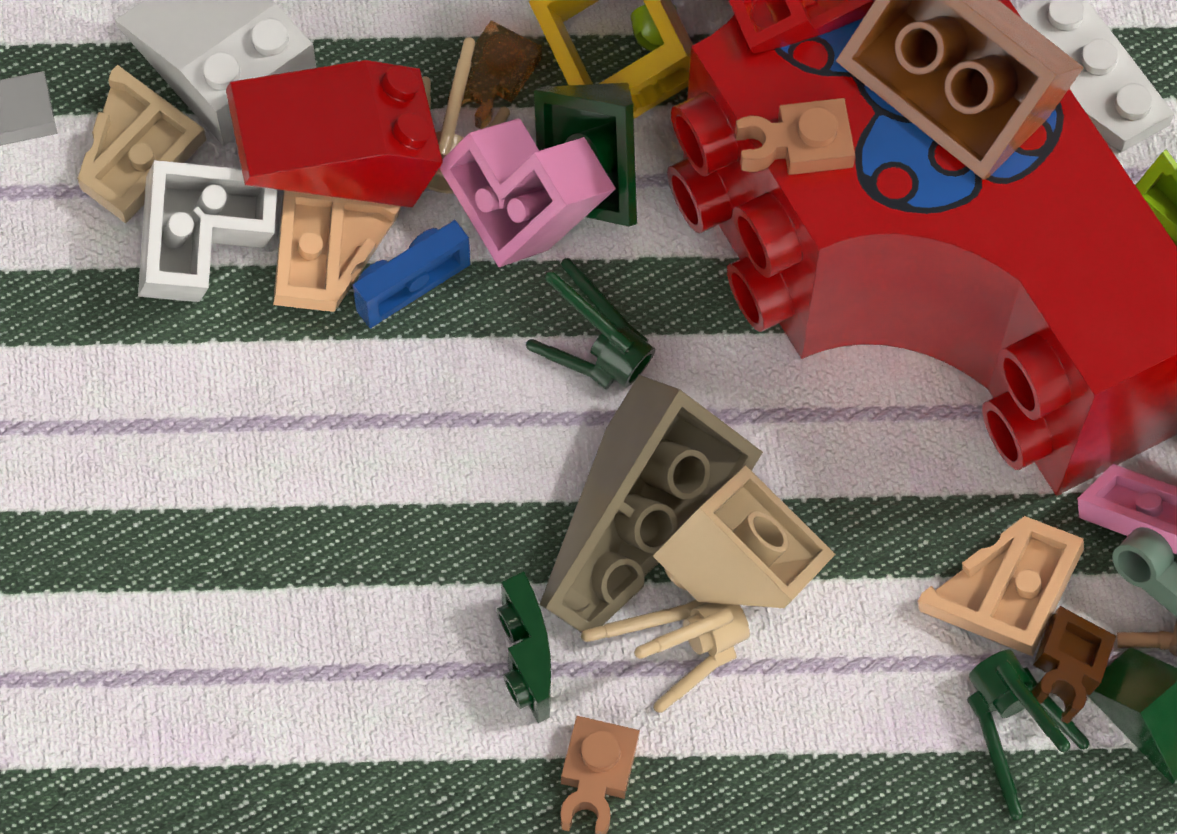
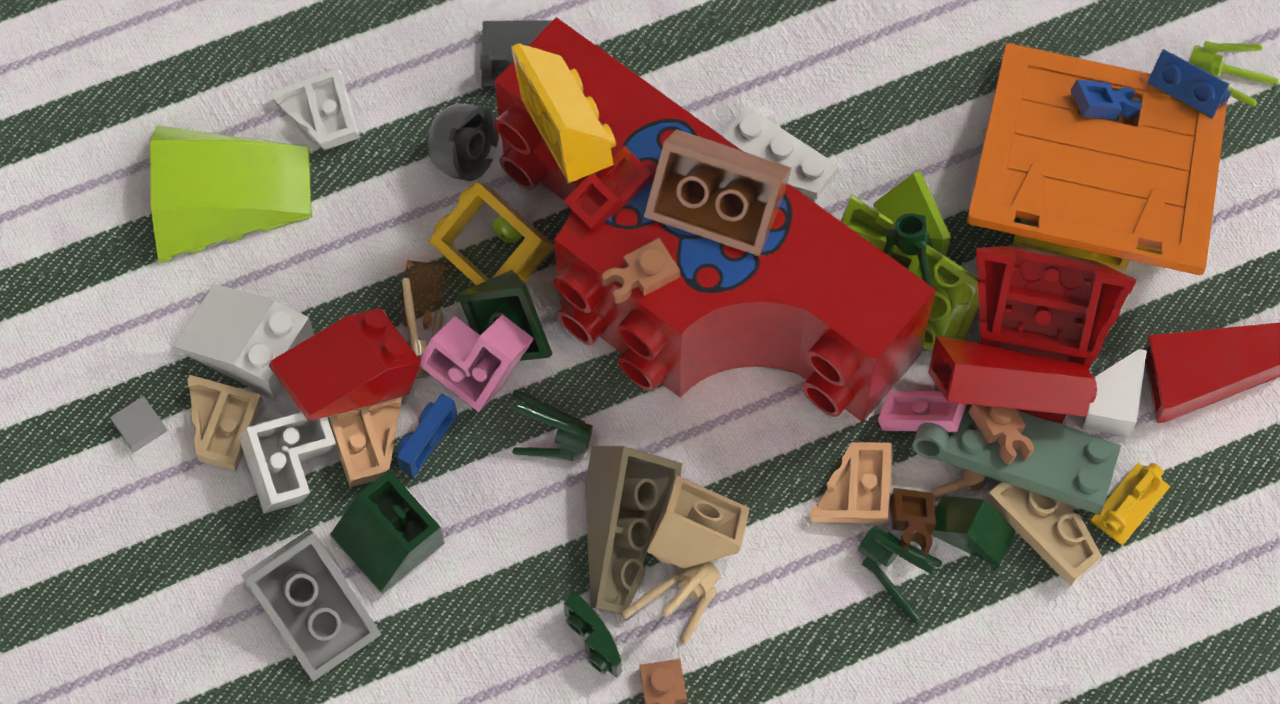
camera: 20 degrees left, 0 degrees up
(145, 448) = (311, 604): none -> light grey slope
(295, 386) = (387, 532): none -> dark green slope

